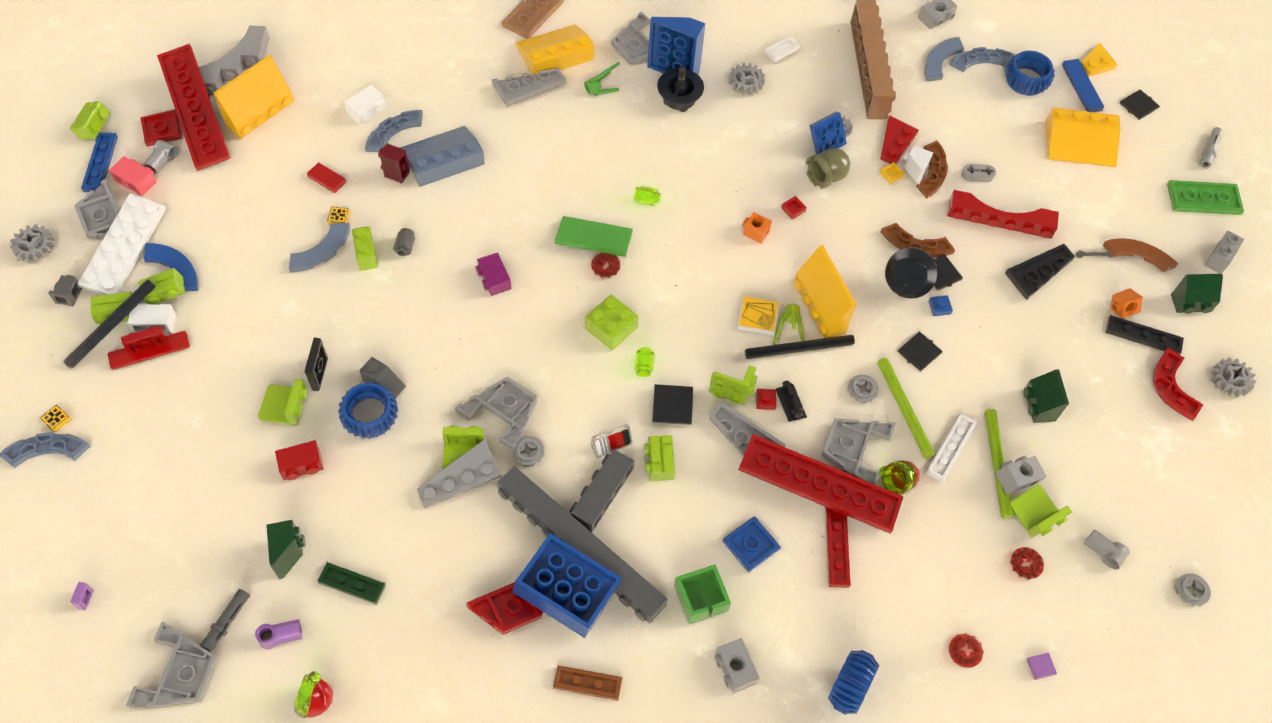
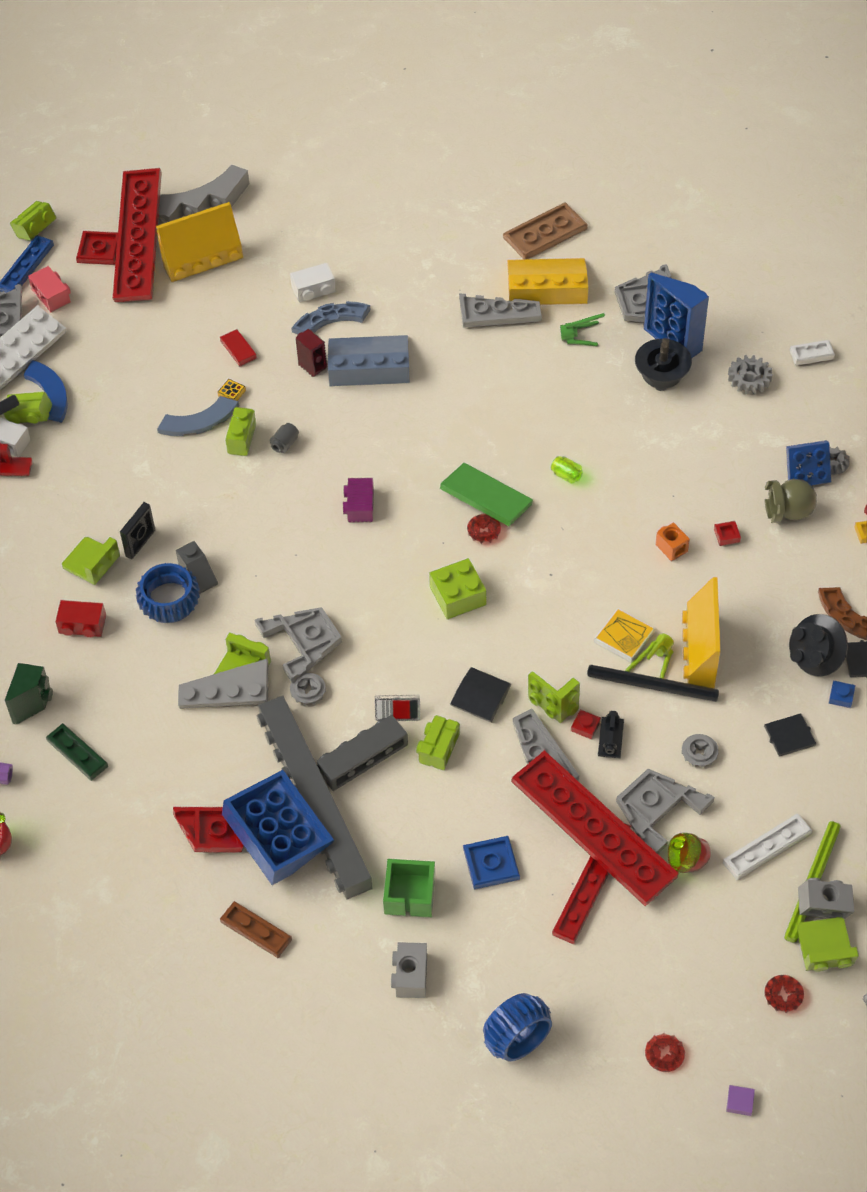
camera: 30 degrees right, 5 degrees down
(161, 154) = (88, 273): light grey piece -> none
(644, 361) = (472, 641): clear neon green brick -> none
(906, 408) = (737, 787): lime axle -> none

